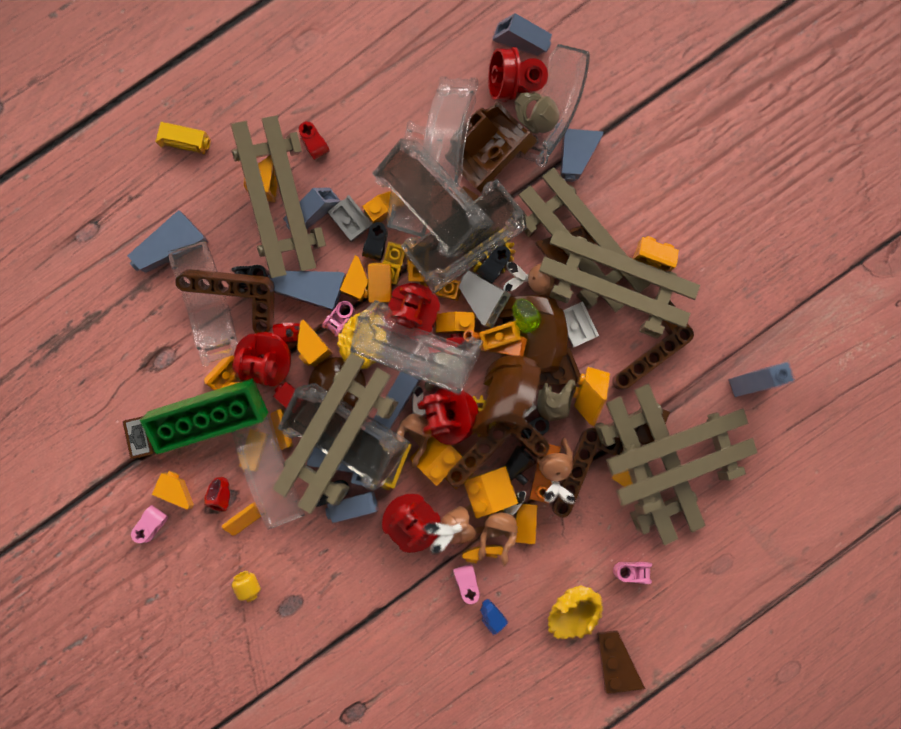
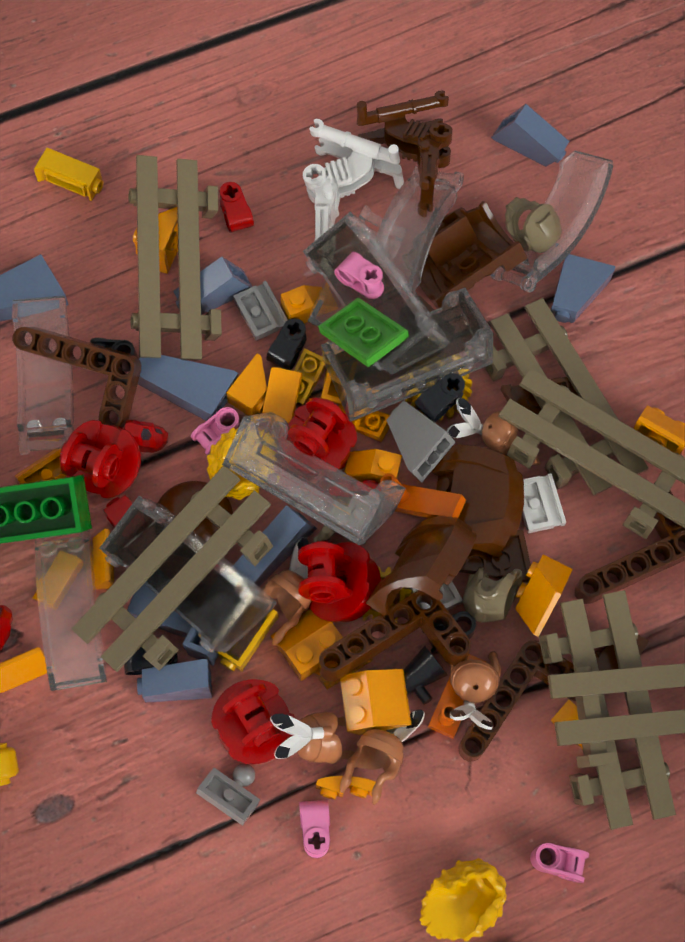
camera: 10 degrees right, 15 degrees down
(311, 346) = (172, 457): light orange slope -> none
(388, 99) = (344, 176): none -> white piece
(405, 573) = (229, 794): none -> light grey plate
(416, 182) = (361, 276): none -> bright pink piece
(430, 231) = (363, 332): none -> bright green tile
(434, 59) = (422, 142): none -> reddish brown piece
(492, 617) = (341, 883): blue rock -> none
(500, 335) = (430, 488): light orange slope -> none
(510, 76) = (508, 176): red piece -> none
(526, 315) = (471, 467): clear neon green rock -> none
(526, 521) = (417, 760): light orange slope -> none

